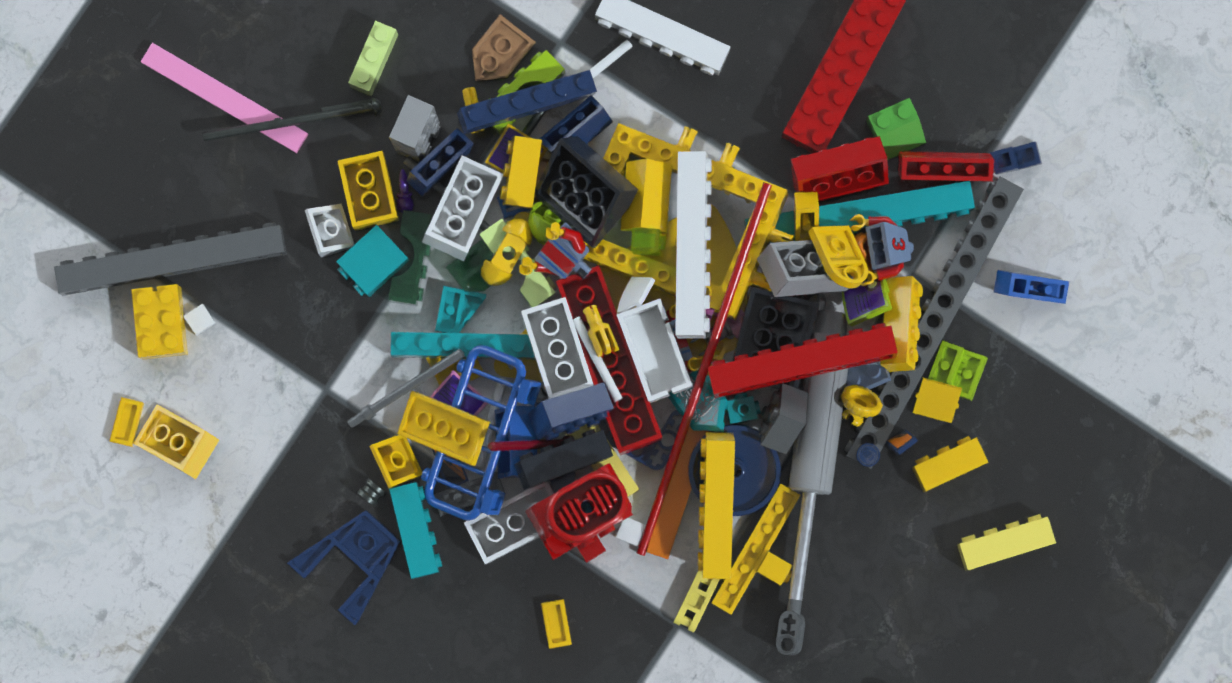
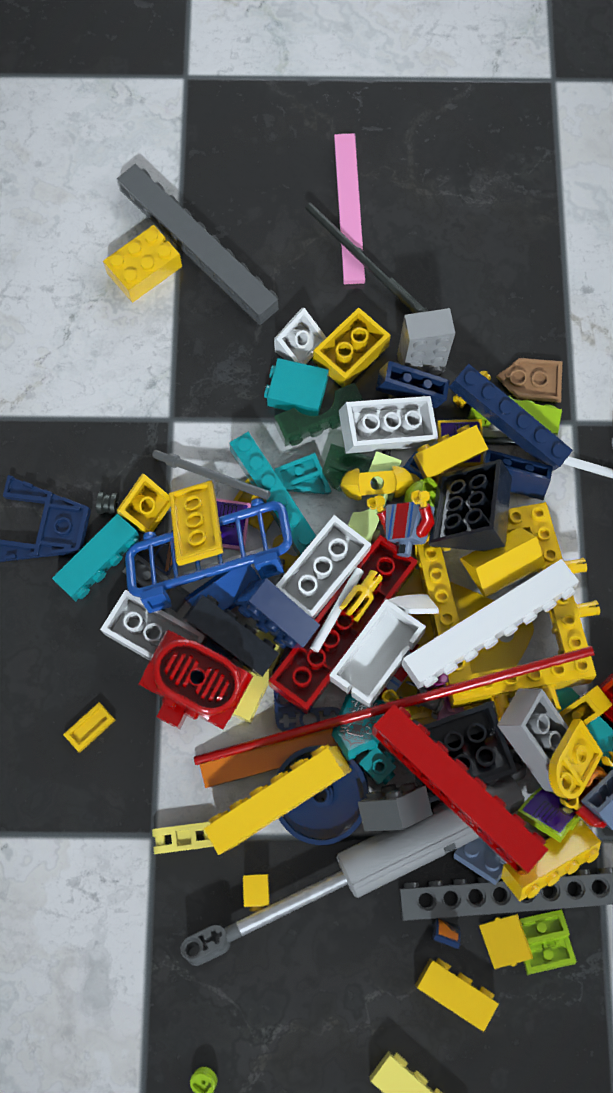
camera: 55 degrees right, 10 degrees down
(126, 422) = (49, 290): yellow tile -> none
(176, 441) = (55, 334): yellow slope -> none
(199, 319) = (165, 293): white tile -> none
(373, 58) = (457, 289): yellowish green brick -> none
(404, 199) = (366, 380): dark purple bar -> none
(525, 445) = (219, 590): dark red bar -> none
(630, 531) = (209, 739): white tile -> none
(647, 241) = (466, 584): clear neon green brick -> none
(756, 548) = (263, 861): yellow plate -> none
(860, 403) = (455, 870): yellow hair -> none
(868, 455) = (413, 909): dark blue tile -> none

